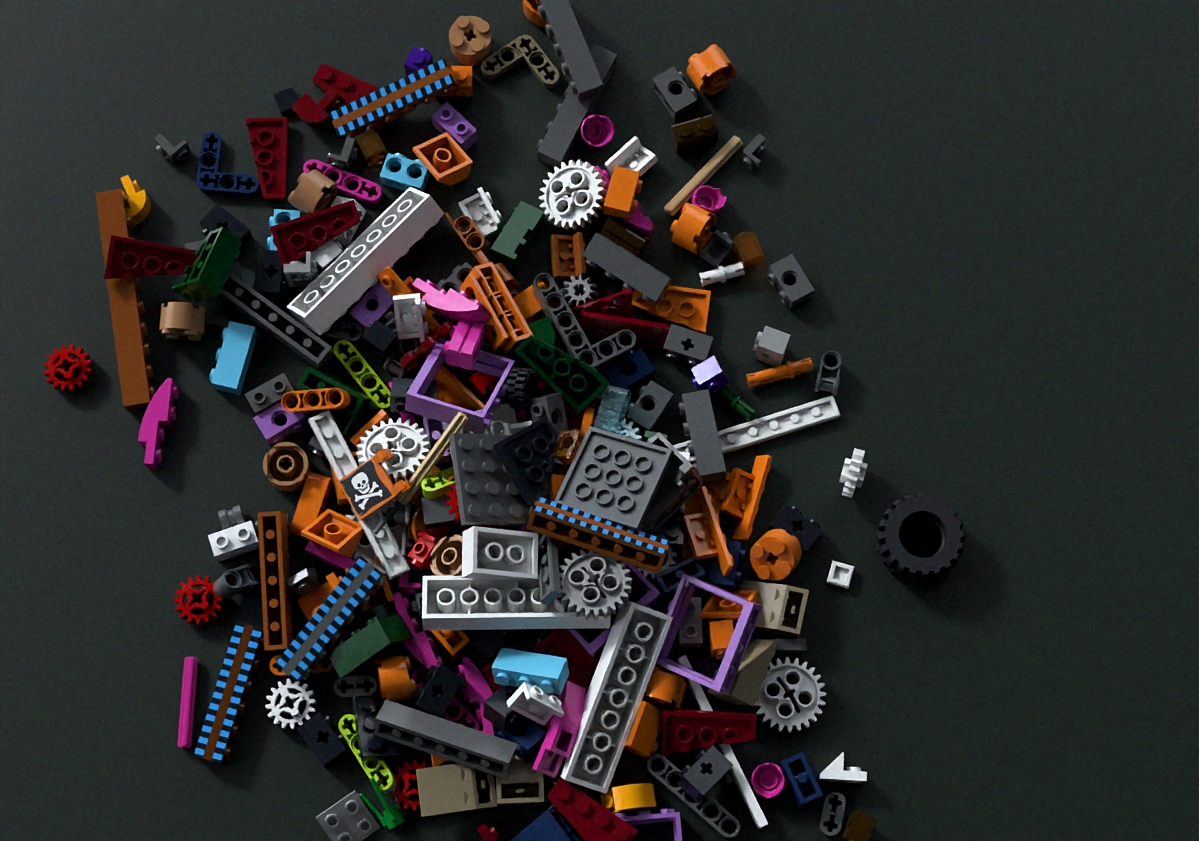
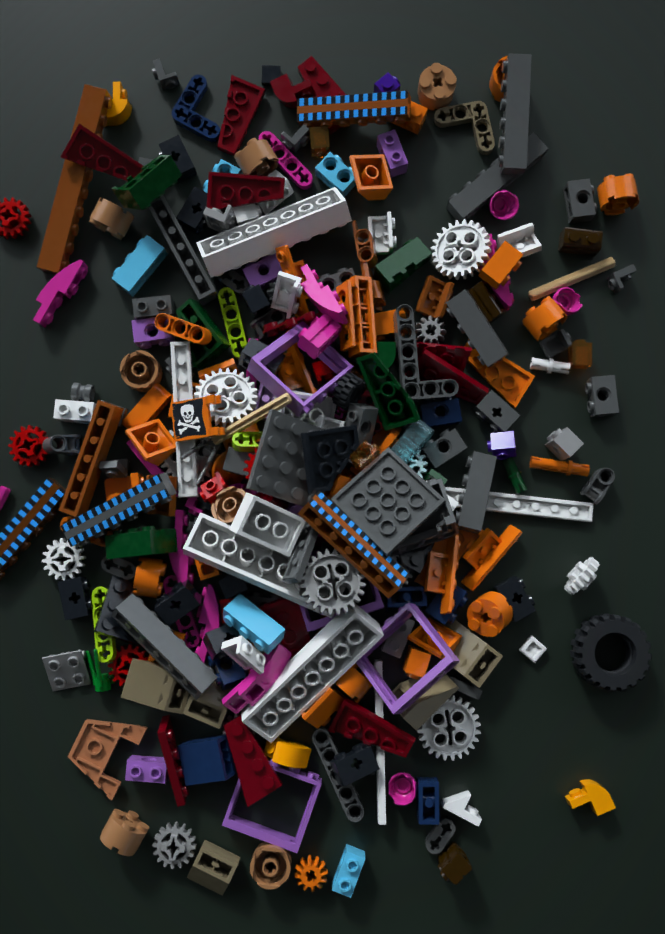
camera: 25 degrees right, 10 degrees up
(975, 694) = (591, 792): none -> light orange brick

